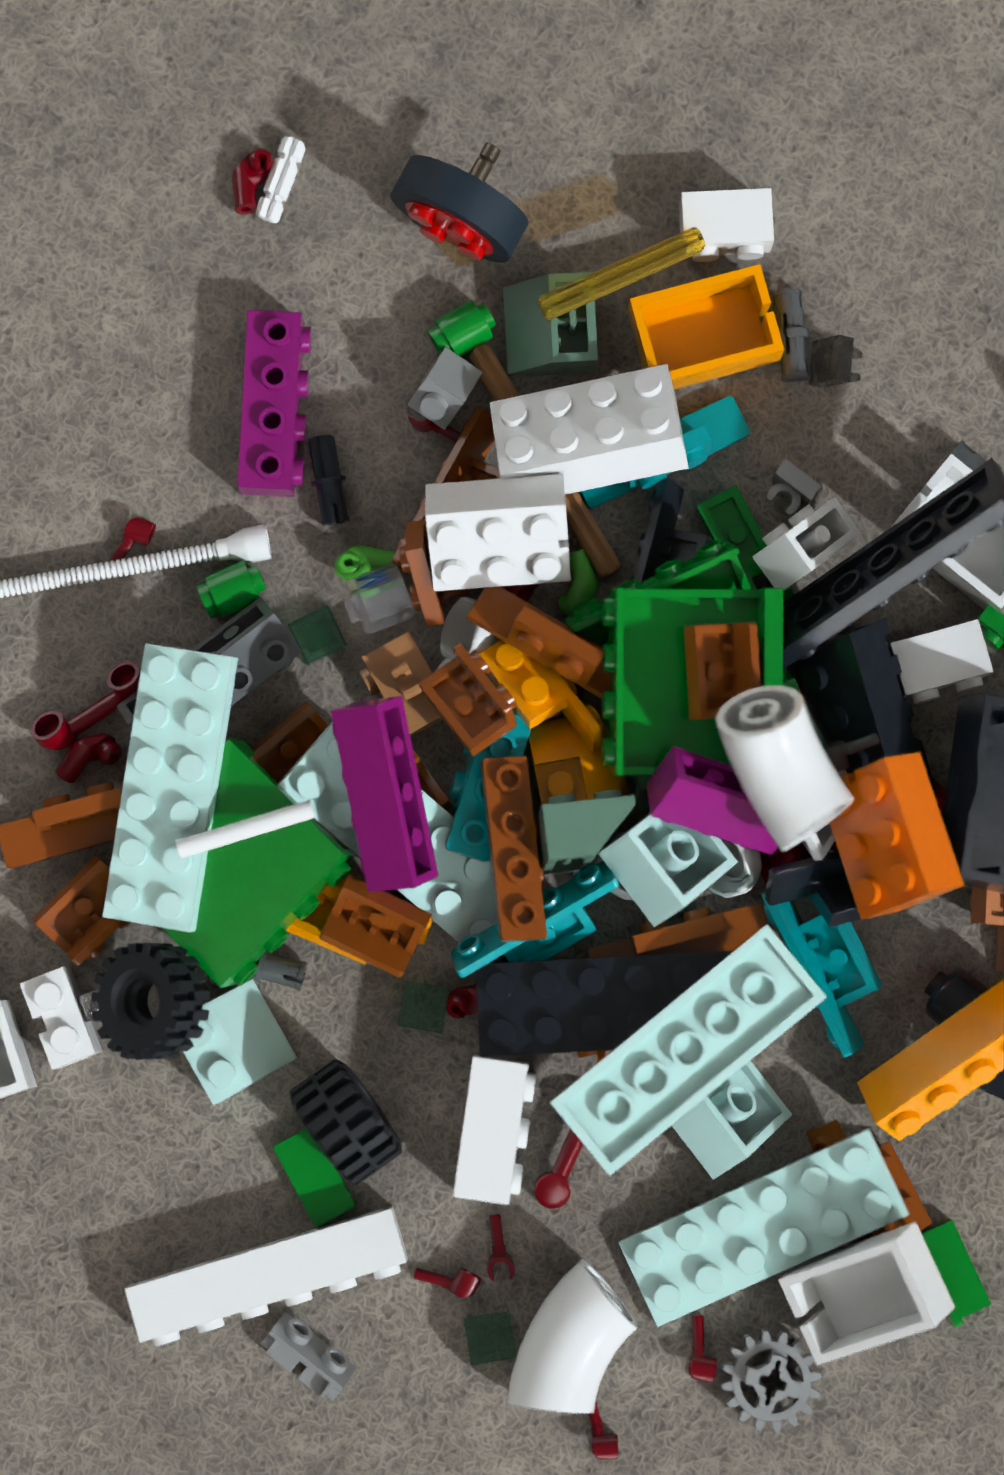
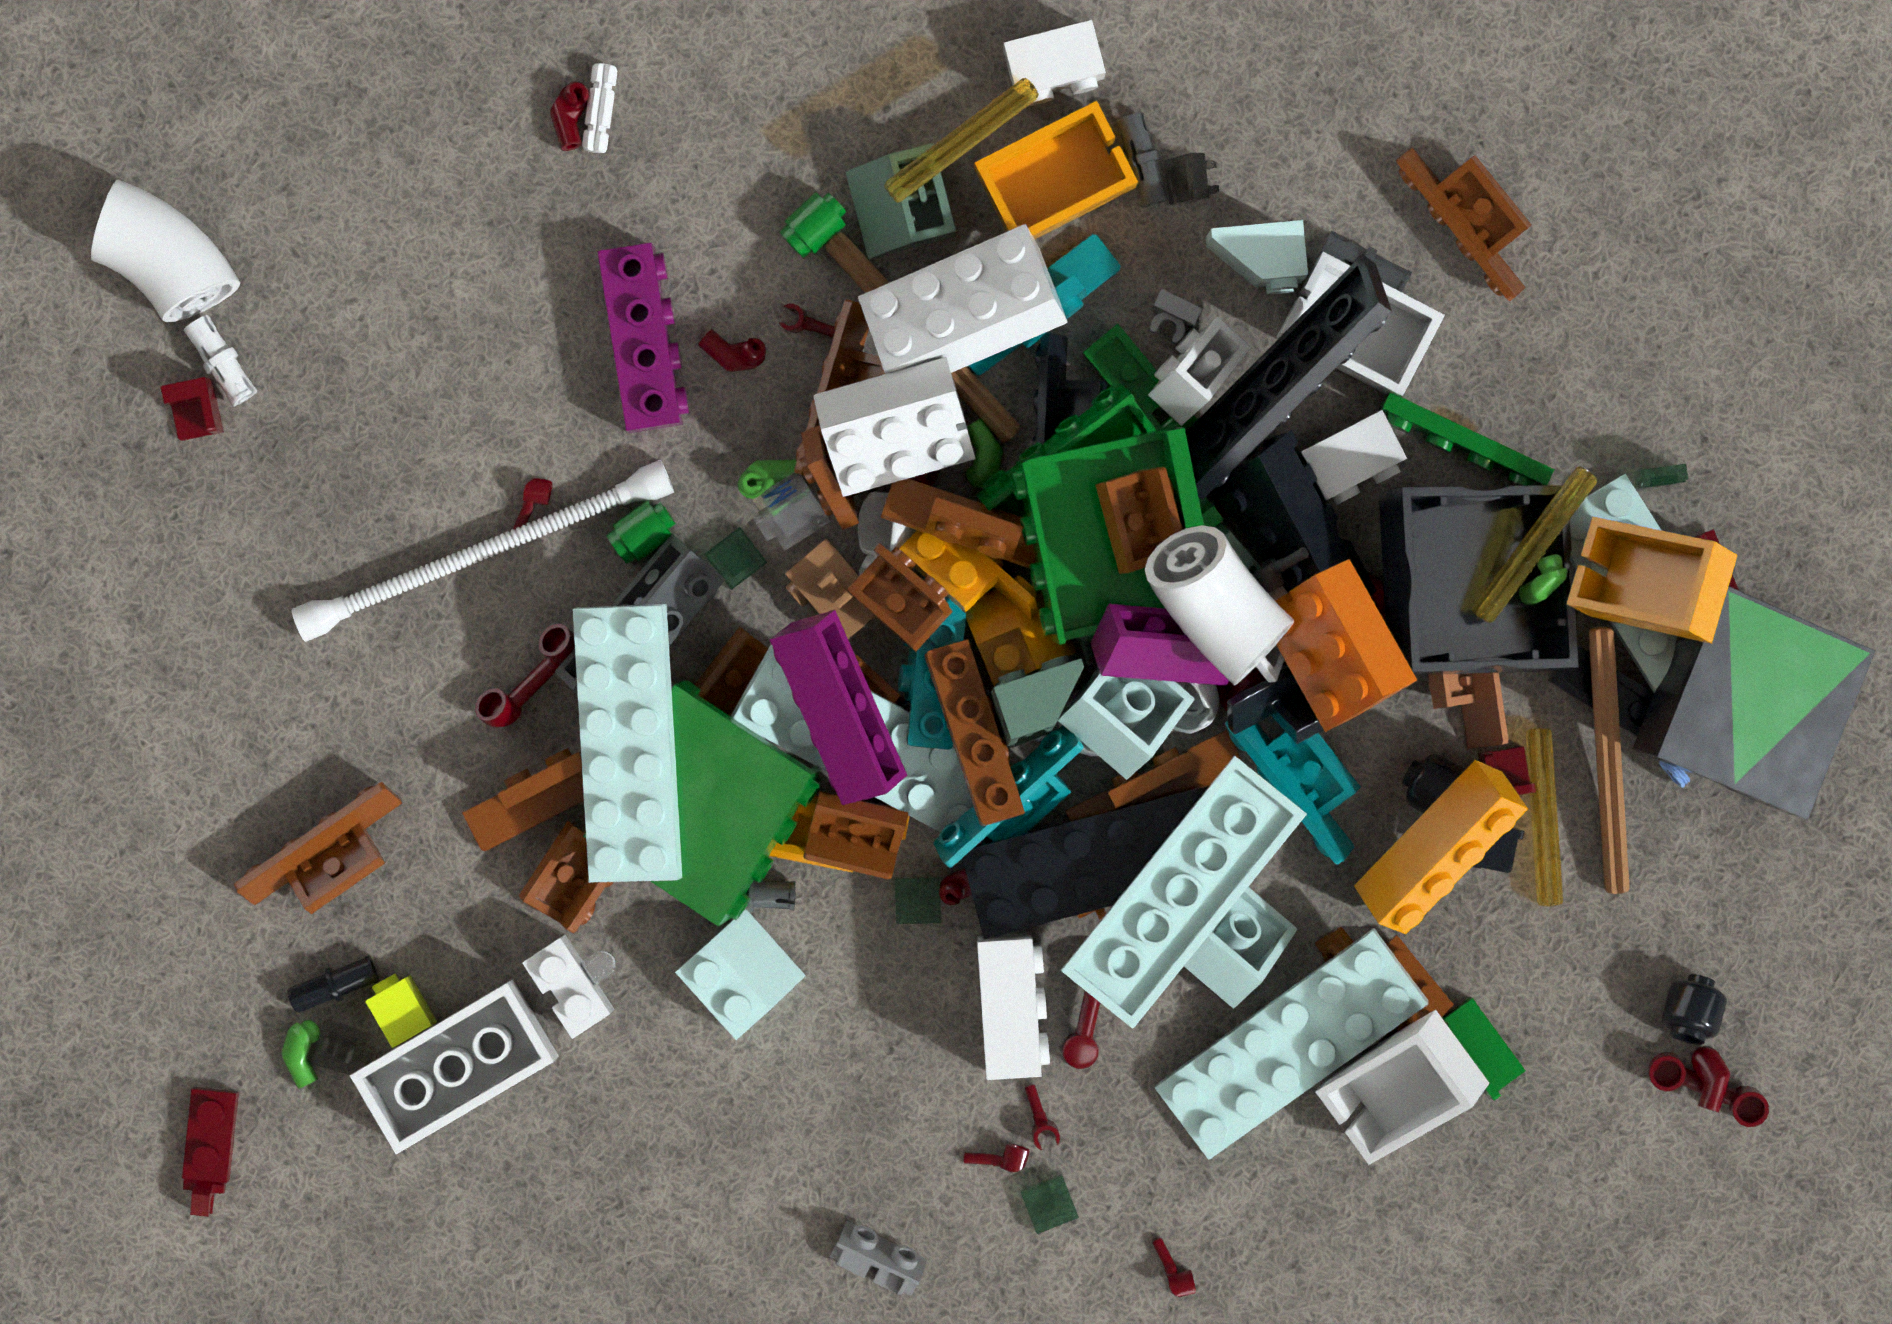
camera: 15 degrees left, 5 degrees up
(86, 750) = (534, 719): dark red arm -> none
(125, 1001) = (628, 958): black tyre -> none
(245, 829) = (710, 770): white bar -> none
(265, 1275) = (821, 1190): white brick -> none
(314, 1178) = (847, 1085): green tile -> none
(328, 480) = (713, 402): black axle -> none
(345, 1122) = (867, 1029): black tyre -> none
(358, 441) = (734, 356): none -> dark red arm
(445, 388) = (809, 288): light grey brick -> none
(460, 206) = (787, 105): black wheel -> none
(570, 1344) = (1128, 1194): white brick -> none
(700, 1366) = (1257, 1188): dark red hand -> none
(790, 1386) = (1307, 1186): light grey gear -> none
(891, 444) = (1263, 253): none -> light aqua slope

